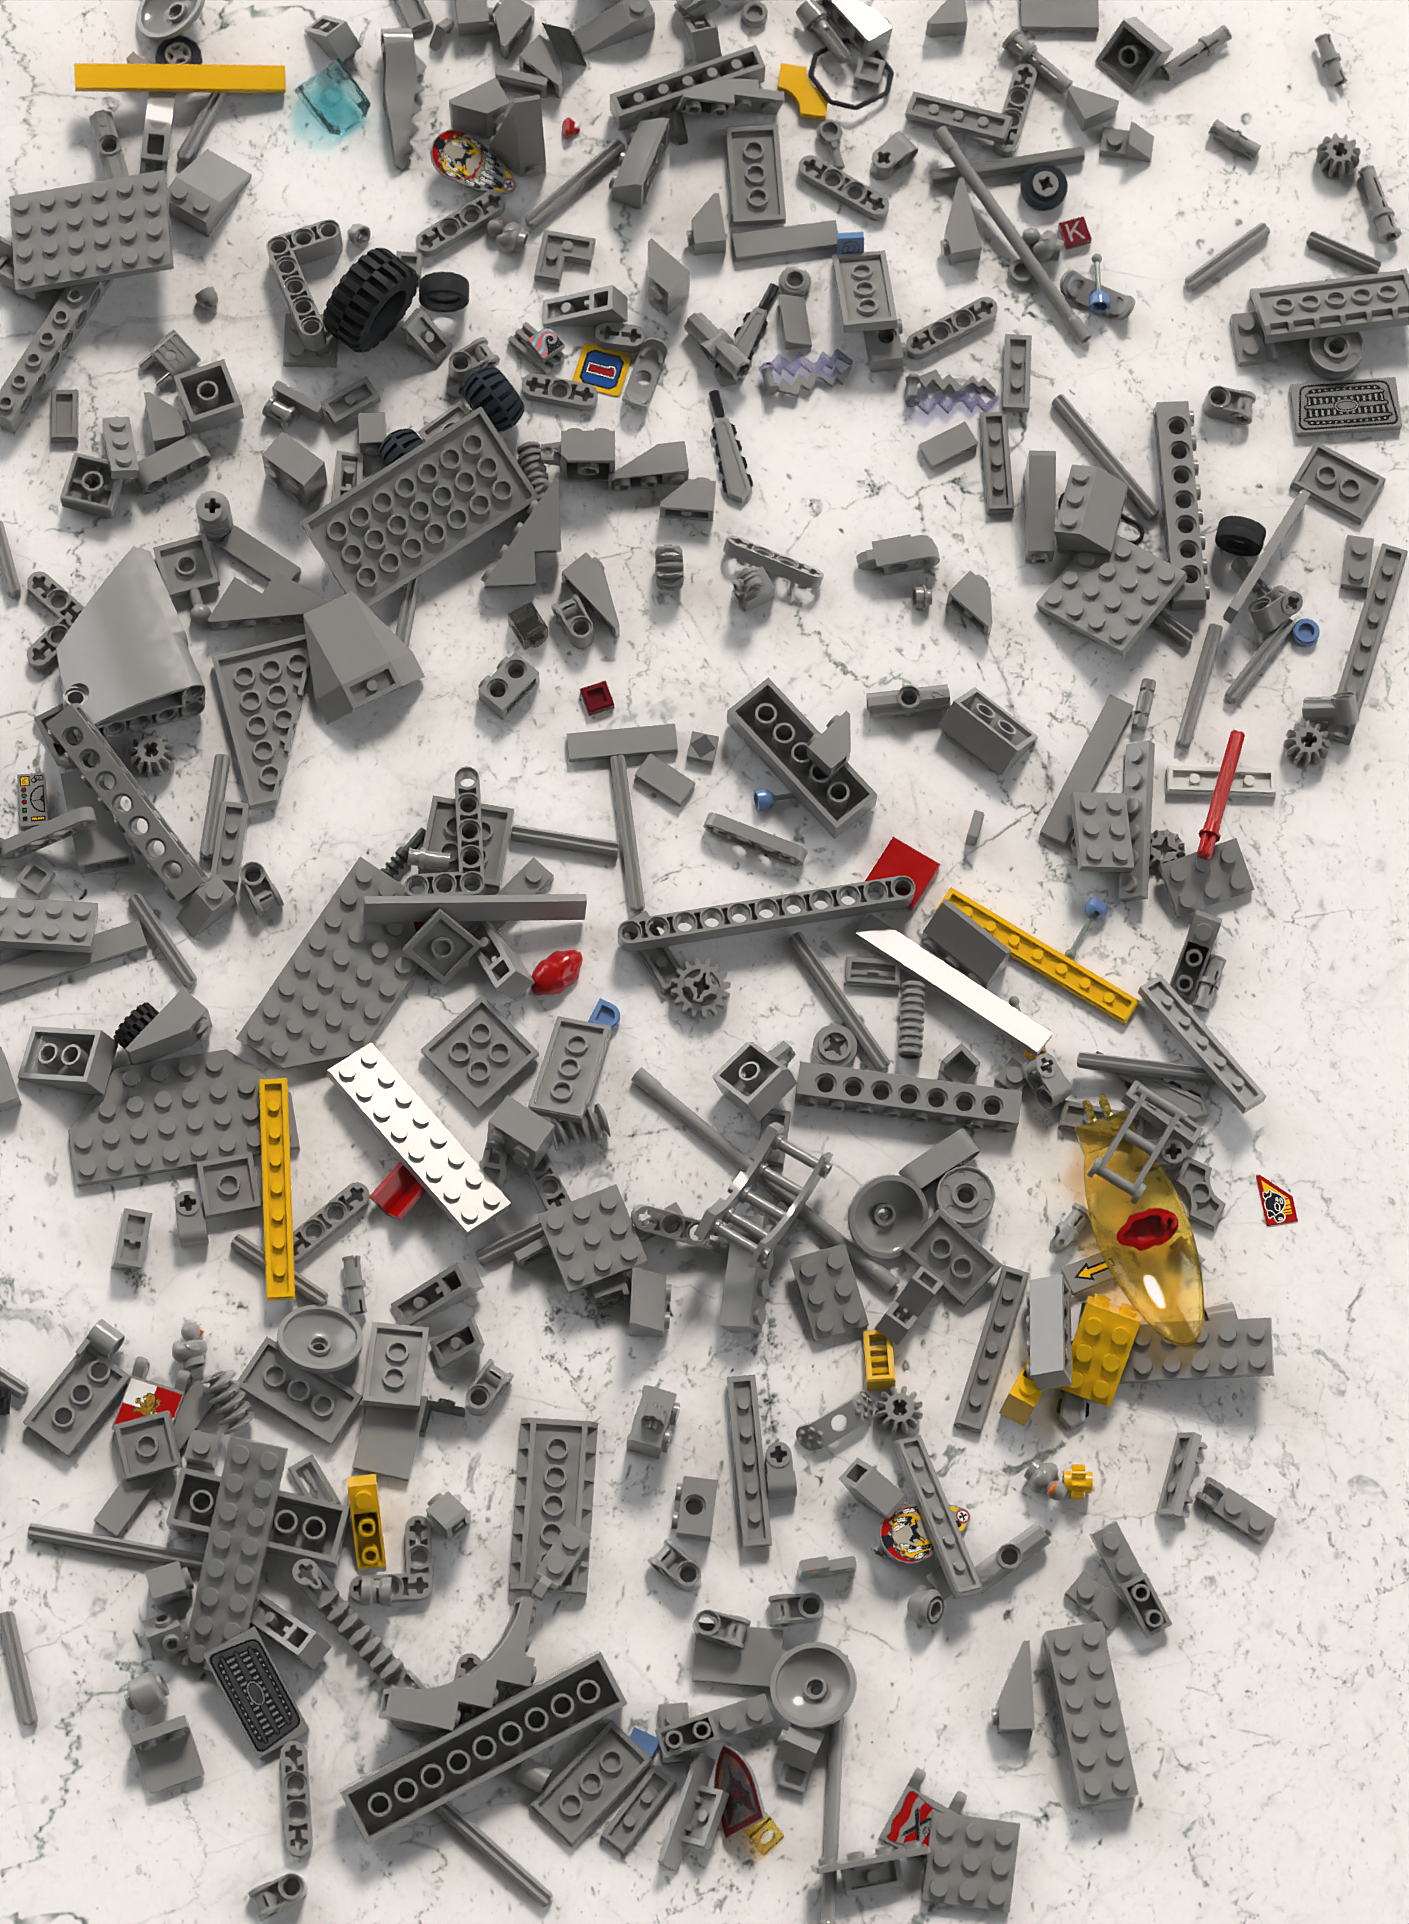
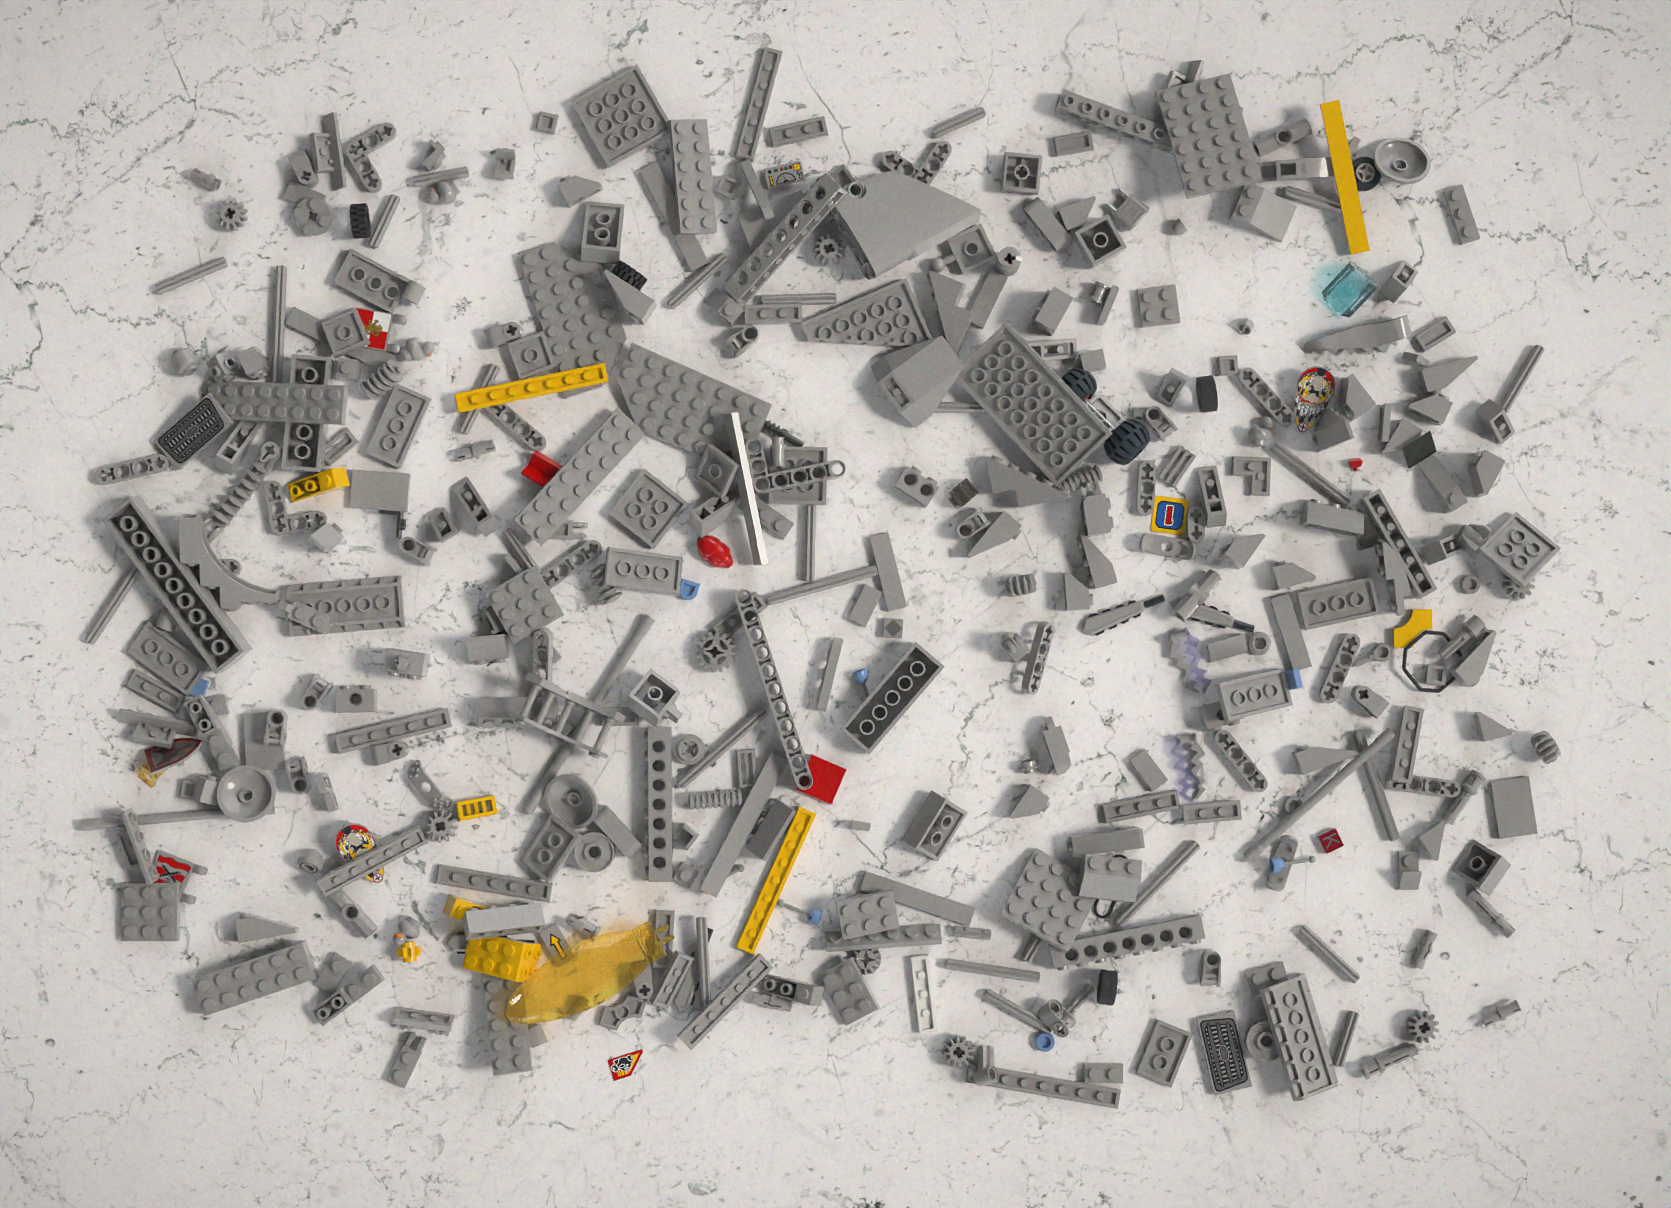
camera: 85 degrees right, 15 degrees up
(120, 447) = (1050, 186): light grey plate -> none
(131, 1240) = (483, 297): light grey hinge -> none
(167, 1754) = (147, 381): light grey bracket -> none
(276, 1895) = (66, 466): light grey piece -> none
(286, 255) = (1199, 287): light grey beam -> none
(320, 1338) = (443, 433): light grey dish -> none
(350, 401) = (1114, 342): light grey plate -> none
(369, 1591) = (268, 498): light grey wheel -> none
(370, 300) = (1185, 342): black tyre -> none
(395, 1366) = (422, 487): light grey plate -> none
(520, 1133) = (588, 544): light grey brick -> none
(546, 343) = (1179, 472): tile -> none
(597, 698) = (918, 549): dark red tile -> none
(829, 1292) = (515, 768): light grey plate -> none
(833, 746) = (896, 719): light grey slope -> none
(872, 1488) = (382, 815): light grey slope -> none
(890, 702) = (951, 779): light grey piece -> none
(909, 1305) = (513, 823): light grey brick -> none
(1038, 194) = (1360, 808): black wheel -> none
(1045, 246) = (1317, 822): light grey animal -> none
(1048, 1082) = (683, 897): light grey piece -> none
(1137, 1188) = (610, 968): light grey piece -> none
(1148, 1229) = (584, 979): red arm -> none
(1210, 832) = (906, 994): red axle -> none
(1266, 556) = (1094, 1007): light grey tile -> none

